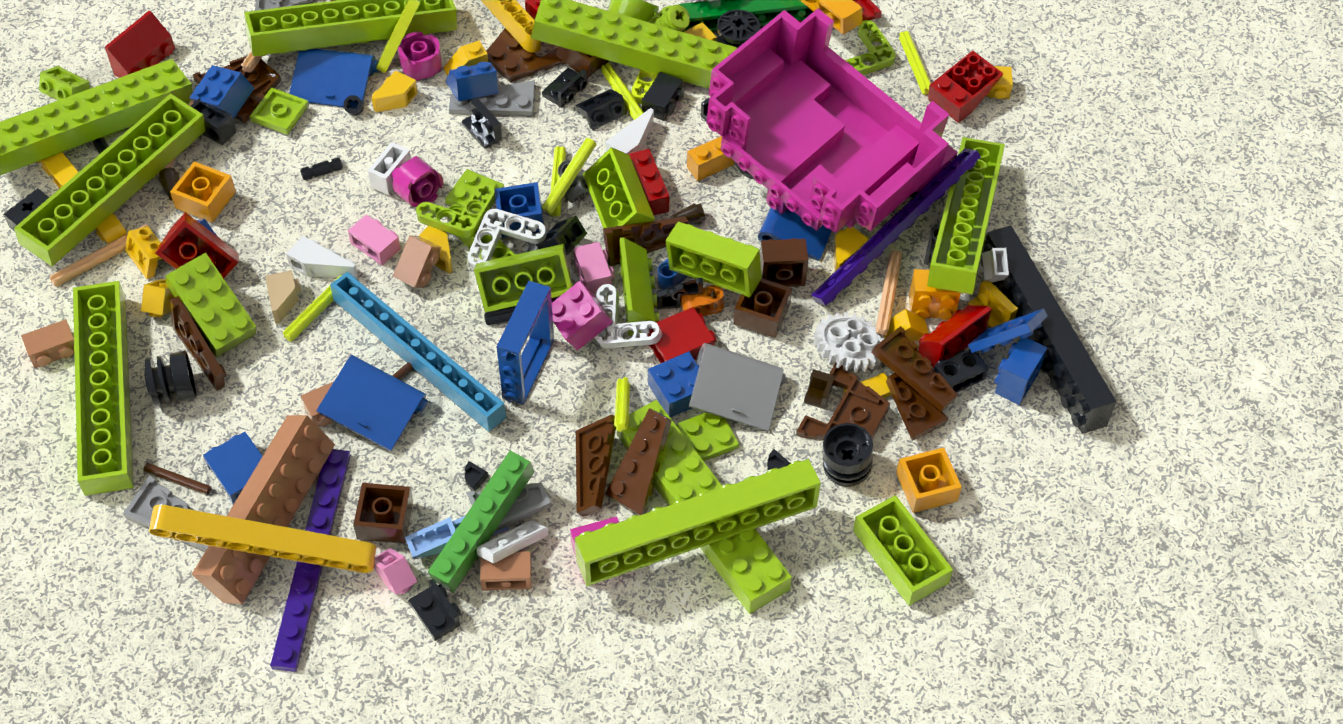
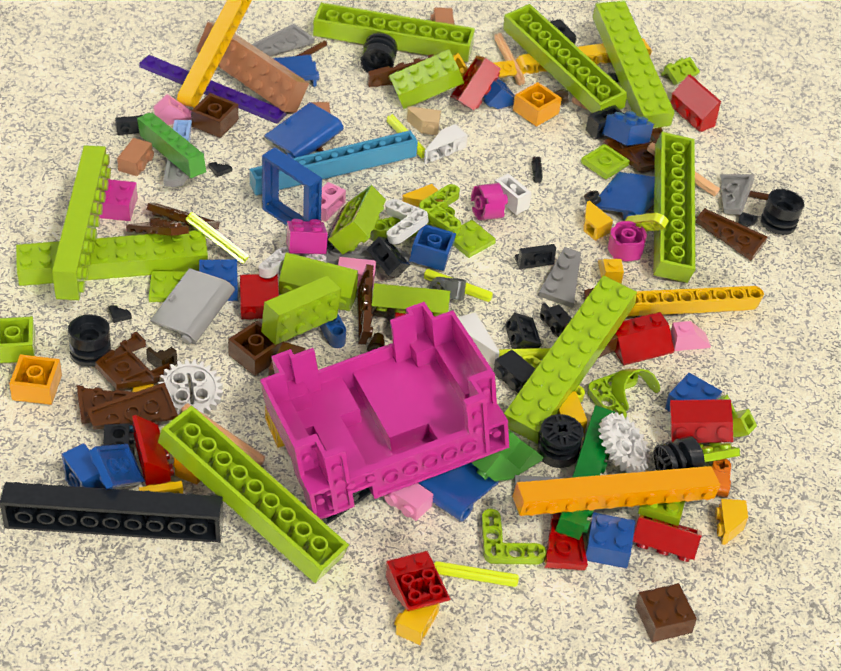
camera: 110 degrees right, 10 degrees down
(374, 239) = (449, 172): bright pink brick -> none
(417, 261) = (411, 180): brick -> none
(473, 81) = (582, 259): blue slope -> none
(488, 336) = (332, 200): none -> bright pink brick
(512, 541) = (150, 160): white tile -> none
(569, 175) = (445, 273): neon yellow axle -> none
(674, 18) = (589, 392): lime piece -> none
(895, 226) = (273, 448): dark purple plate -> none
(995, 264) = (176, 484): white piece -> none

